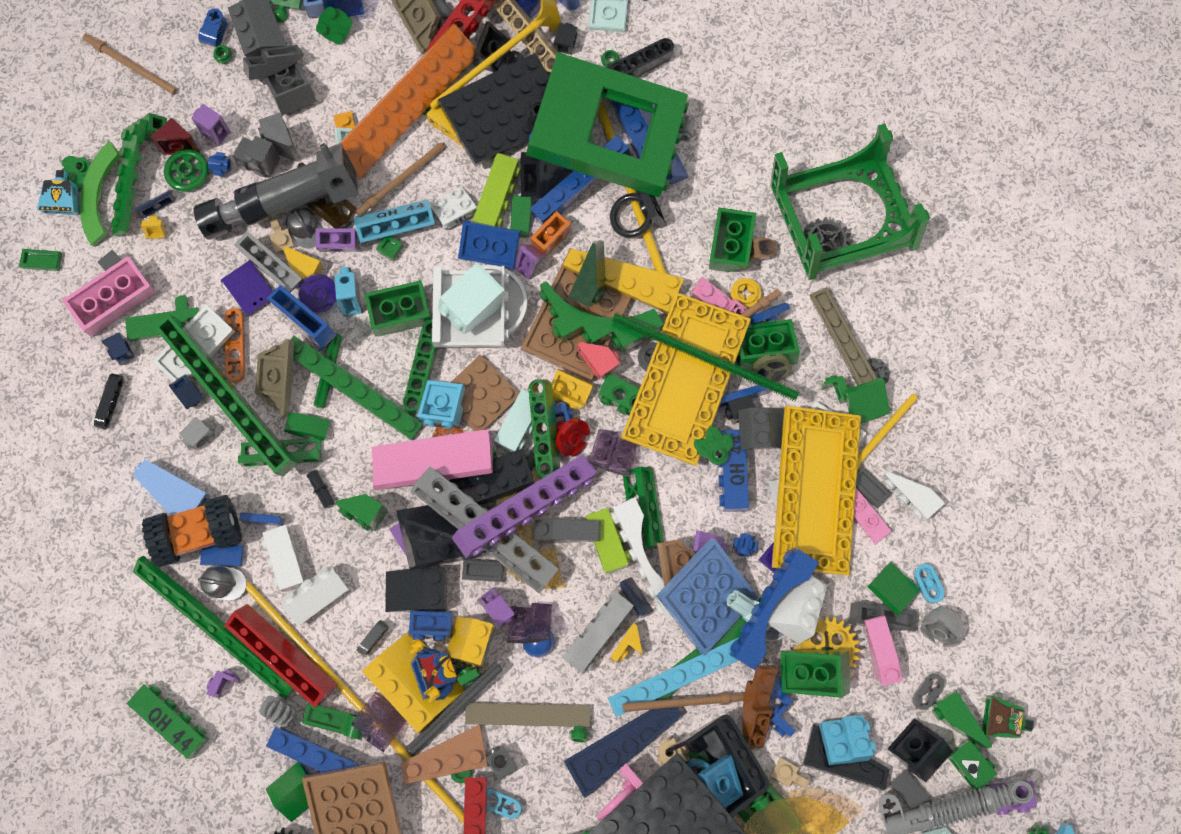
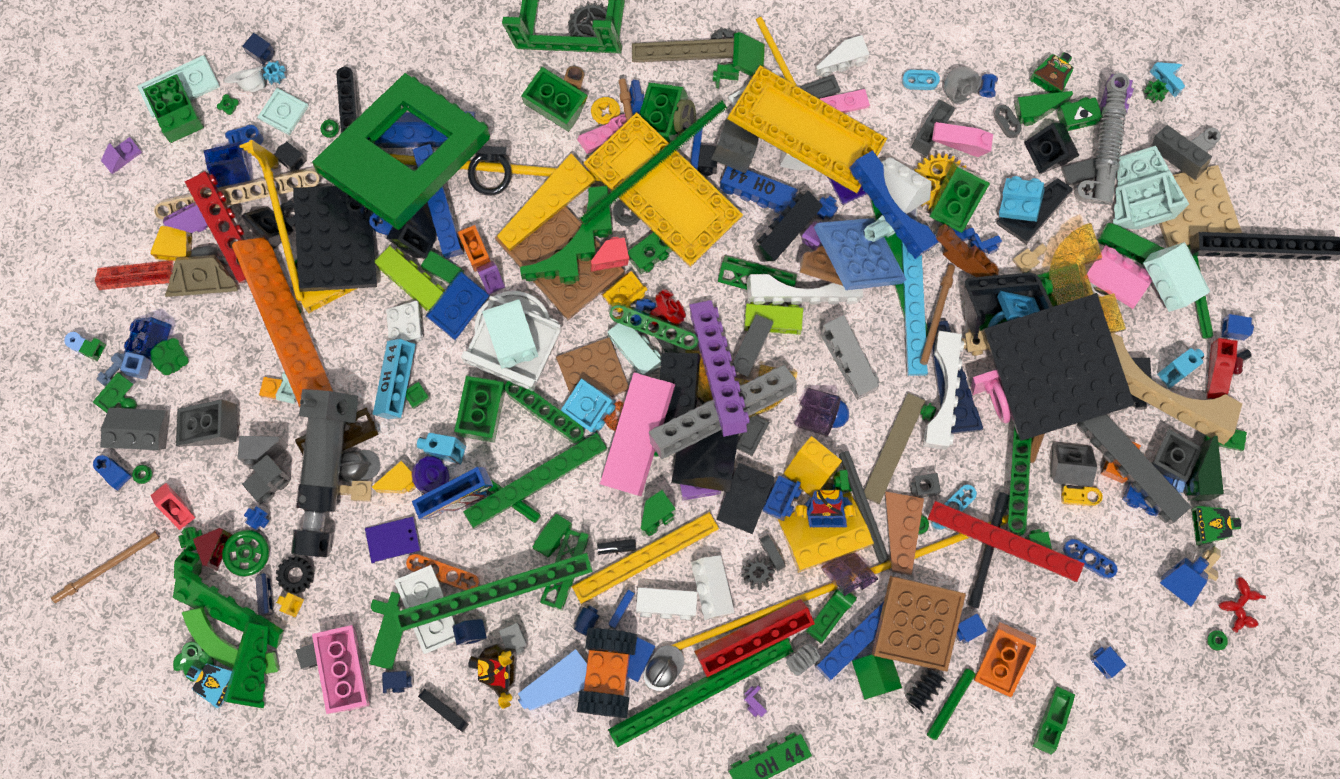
camera: 65 degrees left, 0 degrees up
(40, 260) = (267, 727): green tile -> none
(79, 219) = (247, 675): none -> green wing
(160, 431) = (496, 670): none -> torso
(170, 220) = (307, 575): none -> black tyre
(180, 116) = (187, 537): none -> green gear
(202, 89) = (172, 506): none -> coral slope
(210, 124) = (213, 509): medium lavender brick -> none
(239, 491) = (586, 619): none -> dark blue brick
(267, 262) = (380, 507): light grey slope -> none
(271, 61) = (176, 428): dark grey slope -> none
(275, 376) = (493, 543): dark tan wing -> none
(322, 521) = (645, 558): none -> yellow tile
(336, 240) = (387, 438): medium lavender brick -> none
(343, 640) = (757, 565): none -> dark grey gear
(372, 201) = (365, 390): medium nougat bar -> none
(496, 607) = (791, 433): medium lavender slope -> none
(560, 751) = (947, 352): none -> white arch
(591, 278) = (541, 230): dark green slope -> none
(612, 453) = (698, 280): clear purple slope -> none
(630, 639) = (866, 335): yellow slope -> none
(635, 597) = (822, 318): dark blue slope -> none
(703, 512) = (787, 226): none -> black slope
(714, 442) = (731, 191): green plate -> none
(893, 588) = (914, 107): green tile -> none
(956, 655) = (988, 85): none -> blue bush

